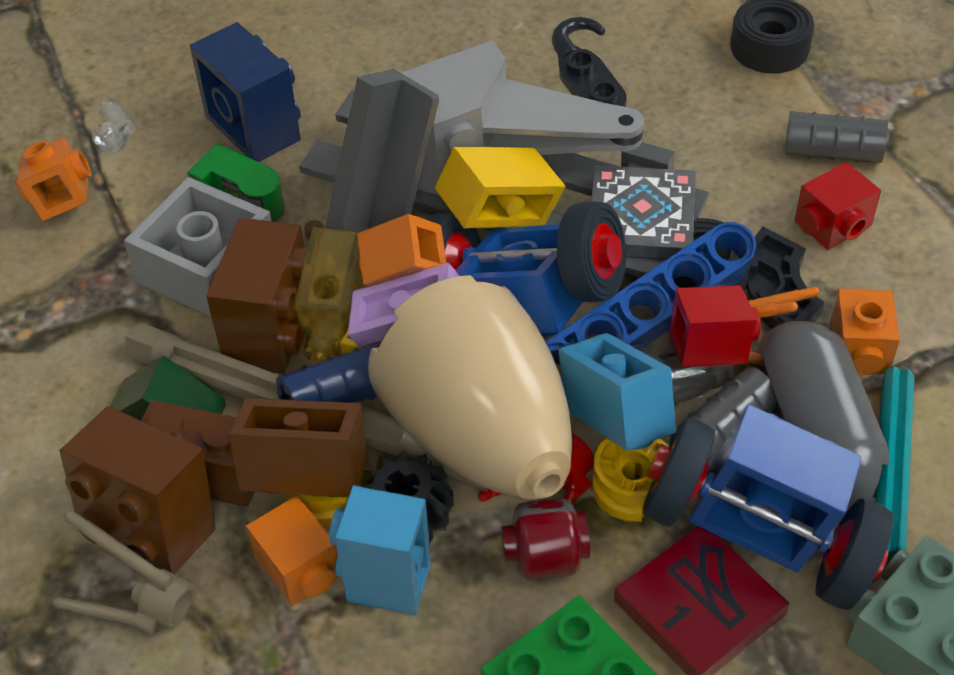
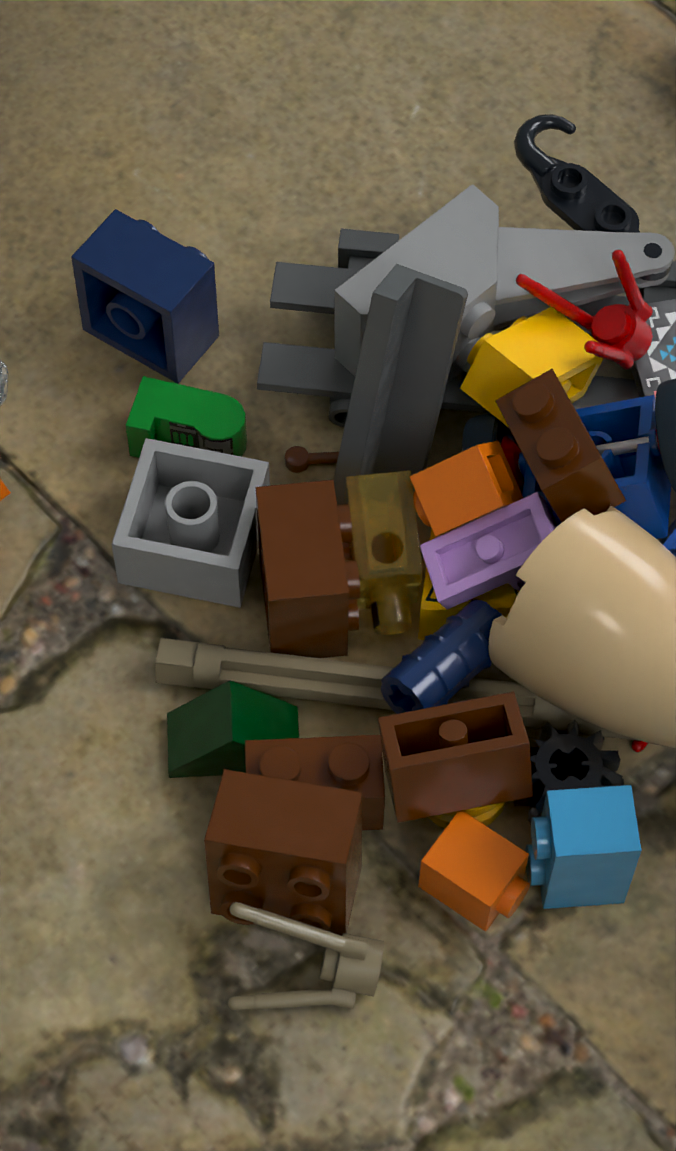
camera: 20 degrees left, 10 degrees up
(480, 232) = (559, 448): none -> reddish brown brick
(581, 176) = (618, 328): none -> red plant

